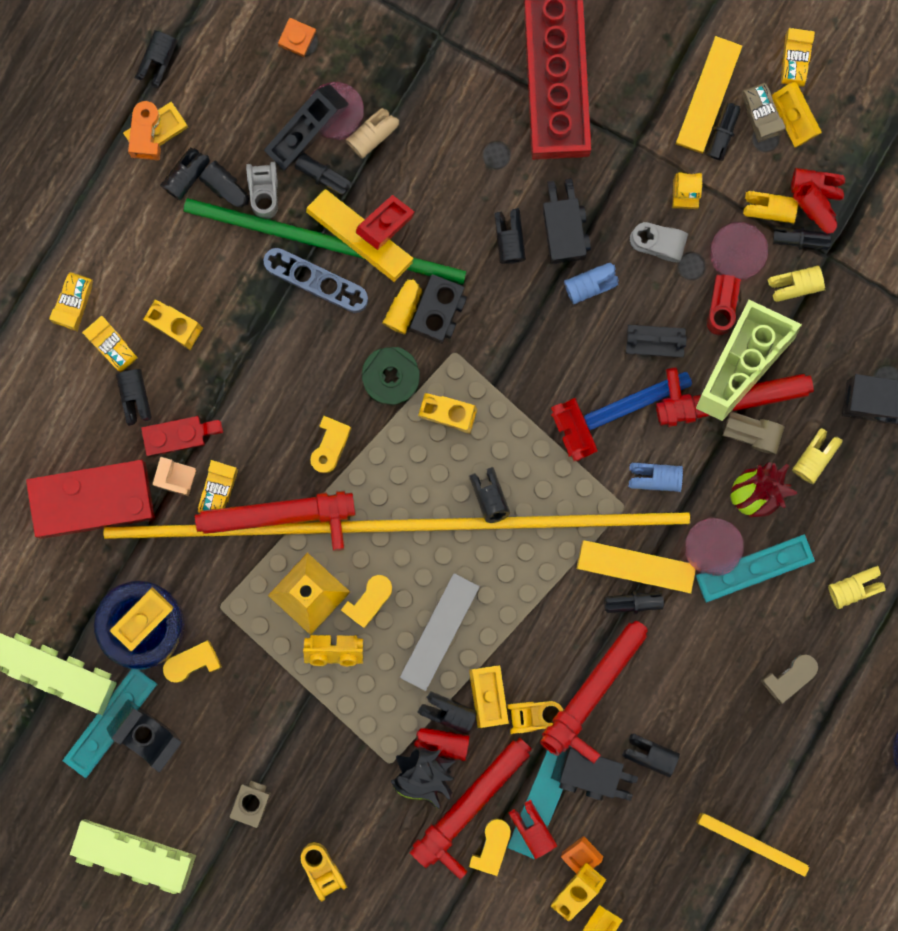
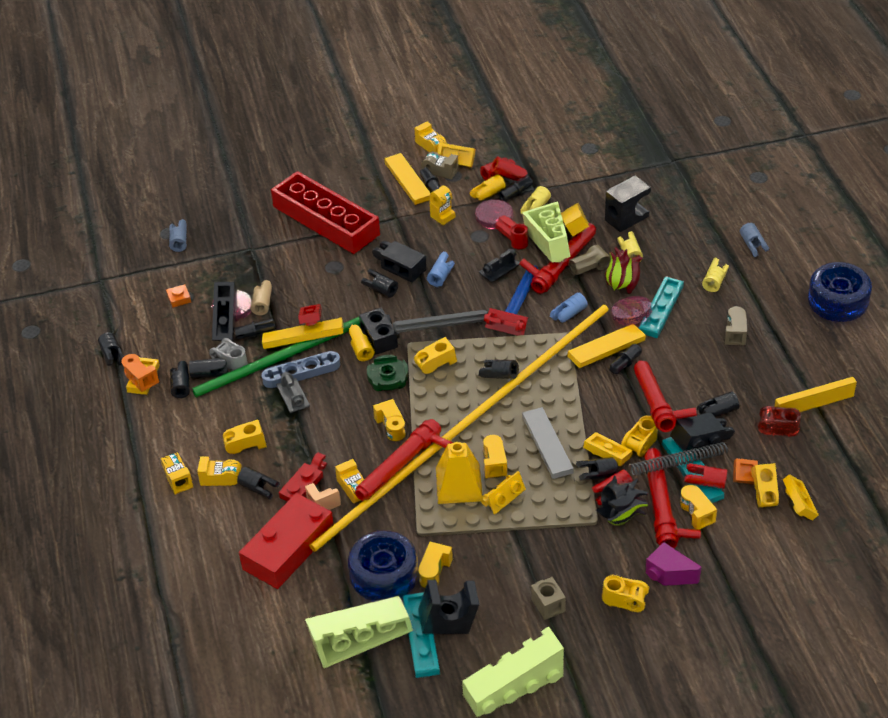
camera: 40 degrees left, 40 degrees down
(141, 619) = (381, 545): yellow plate -> none
(274, 308) = (292, 393): none -> dark grey hinge
(390, 885) = (672, 567): none -> magenta slope
(505, 366) = (439, 321): none -> dark grey axle
(531, 784) = (662, 458): none -> dark grey piece
(664, 241) = (453, 234): light grey piece -> none
(683, 832) = (781, 421): none -> clear red piece
(797, 361) = (574, 219): none -> yellow slope

